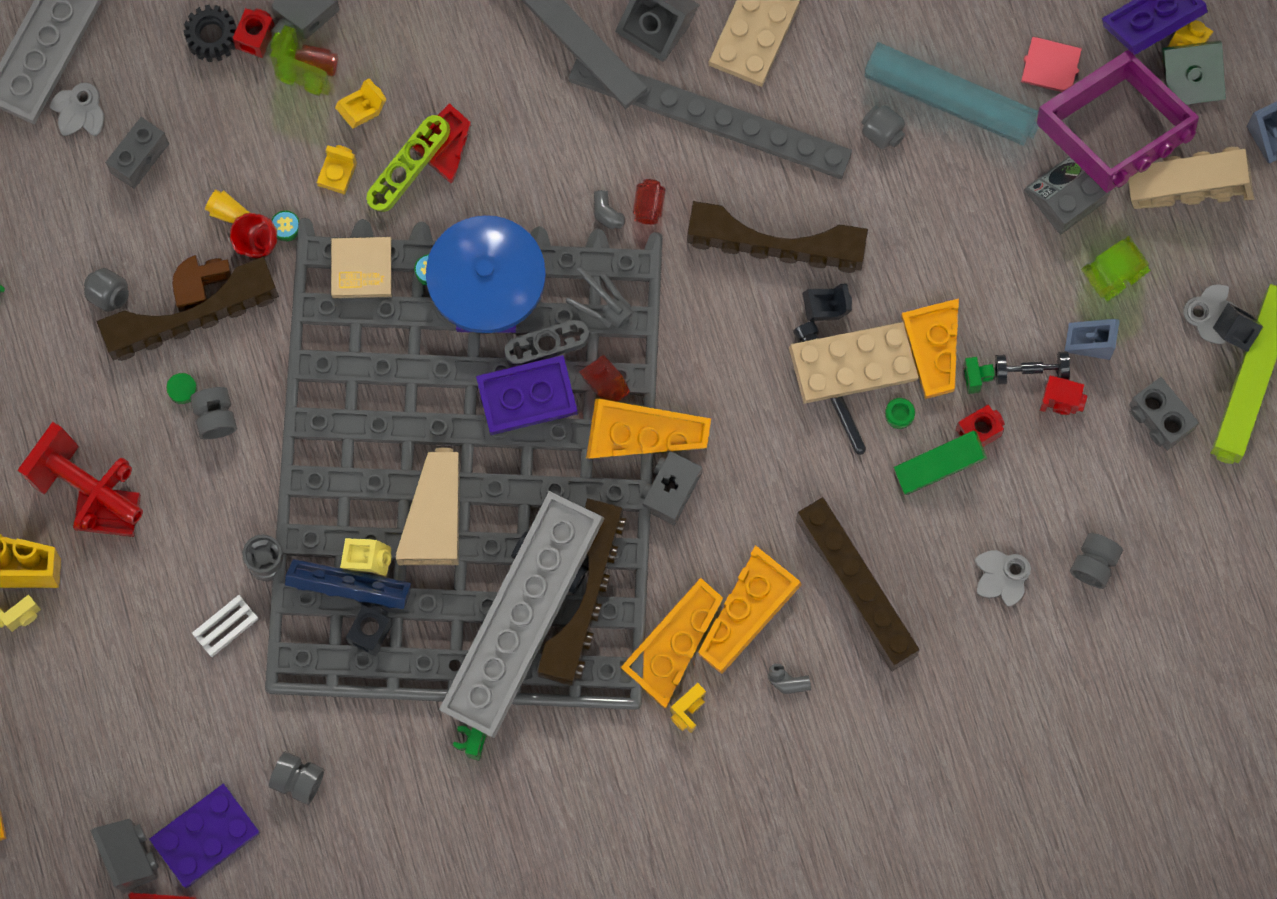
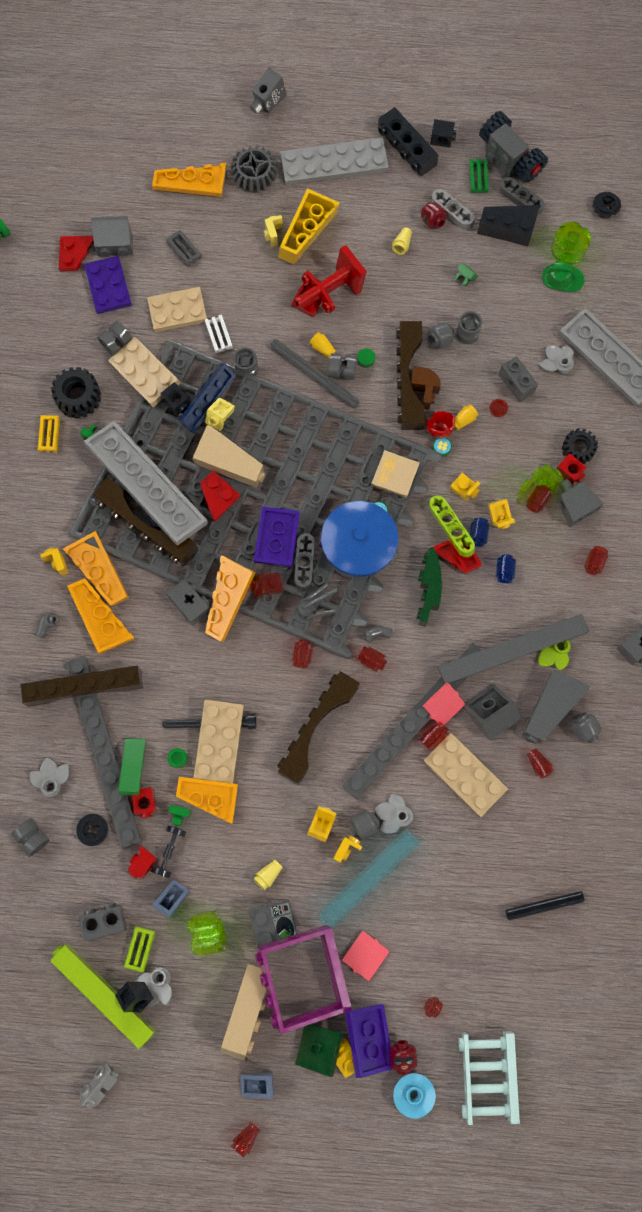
camera: 110 degrees right, 0 degrees up
(72, 759) = (187, 262): none -> dark grey tile
(78, 251) = (469, 327): none -> dark grey wheel
(186, 459) = (322, 345): none -> yellow cone
(191, 167) = (498, 408): none -> clear red plate
(207, 708) = (177, 309): none -> tan plate
(236, 455) = (314, 373): none -> dark grey axle
(336, 706) = (142, 371): none -> tan plate
(396, 773) = (72, 379): none -> black tyre
(399, 125) = (479, 531): none -> clear blue brick
(441, 70) = (505, 568): none -> clear blue brick
(494, 507) = (218, 495): none -> red wing
(494, 826) = (48, 447): none -> yellow tile
(498, 163) = (432, 581): none -> dark green slope
(674, 82) = (444, 704): none -> coral piece
(681, 300) = (302, 653): none -> clear red brick
(722, 81) = (434, 735): none -> clear red brick
(827, 303) = (263, 740): black bracket -> none
(852, 100) = (391, 812): none -> light grey plate
(906, 181) = (322, 823): none -> yellow bracket
(926, 141) = (343, 851): none -> yellow bracket
(941, 513) = (105, 760): none -> dark grey plate
(1006, 226) = (267, 875): none -> light yellow cone
(1045, 471) = (83, 828): none -> black gear
(1176, 366) = (132, 945): none -> lime tile

